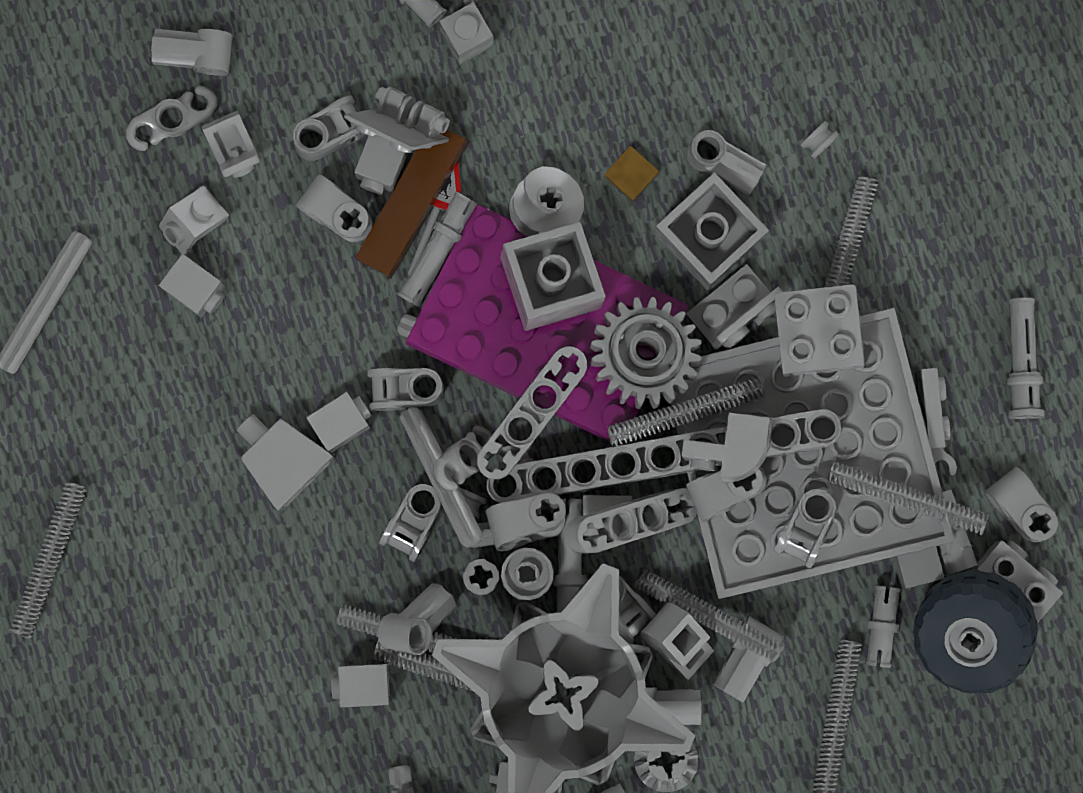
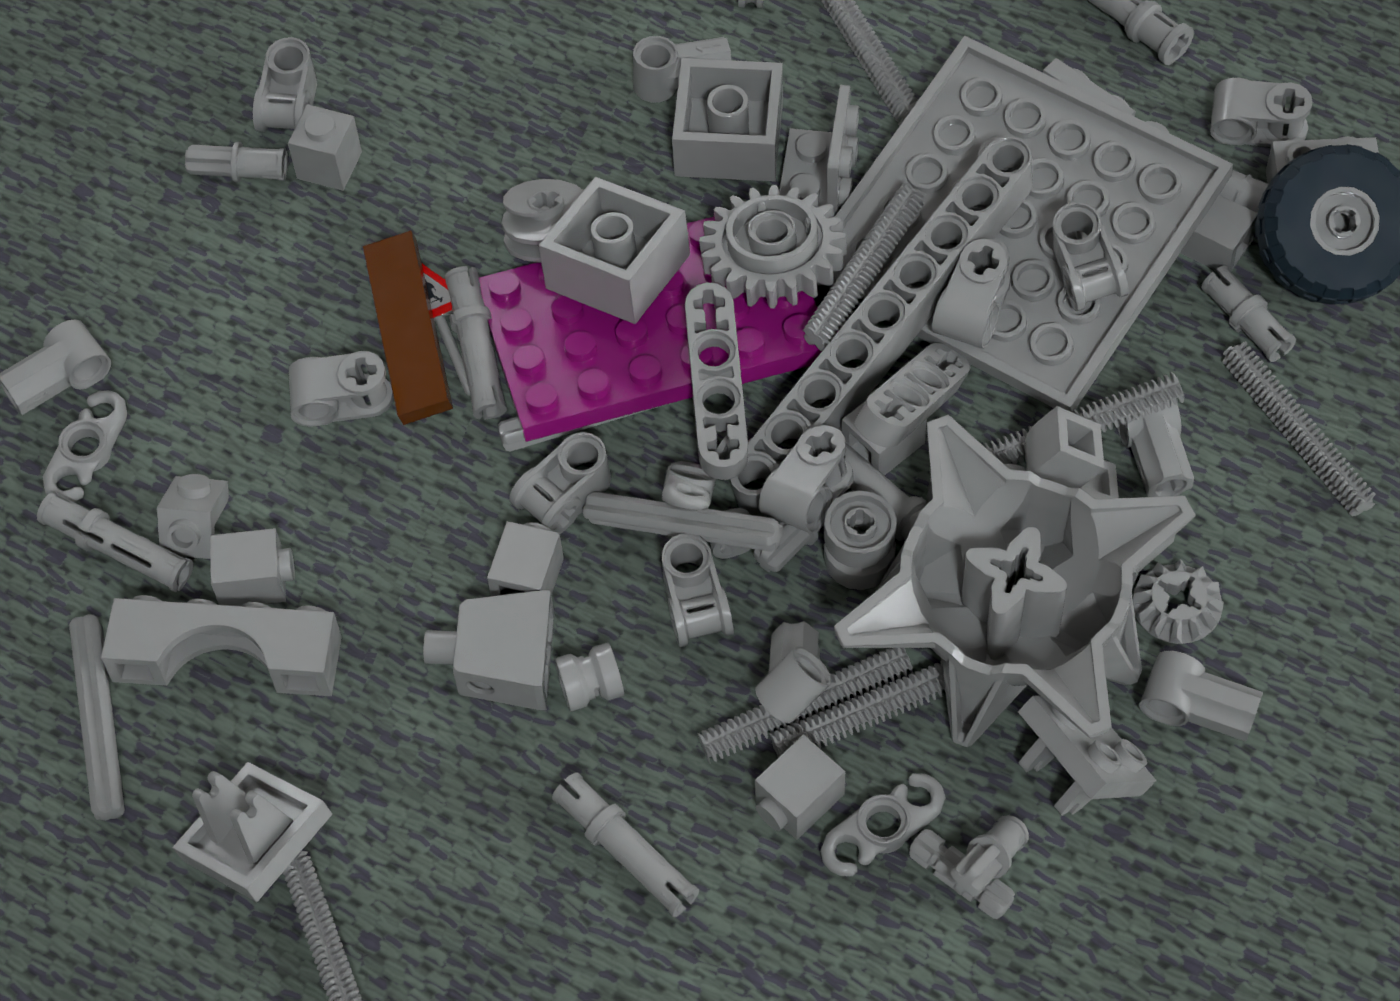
camera: 30 degrees left, 25 degrees down
(64, 453) = (250, 829): none -> light grey plate
(105, 286) = (155, 638): none -> light grey arch
(134, 191) = (95, 531): none -> light grey pin
(231, 145) = (171, 415): light grey bracket -> none
(249, 632) = (607, 827): none -> light grey pin
(313, 519) = (589, 677): none -> light grey wheel
(331, 127) = (264, 330): light grey piece -> none
(379, 165) = (344, 311): light grey brick -> none
(402, 121) = (315, 257): light grey hinge -> none
(407, 752) = (855, 830): none -> light grey piece
(470, 571) = (820, 589): light grey bush -> none
(631, 174) = (603, 146): pearl gold tile -> none
(743, 450) = (950, 232): light grey brick -> none
(819, 330) = (922, 90): light grey bracket -> none
(899, 494) = (1152, 157): light grey axle -> none

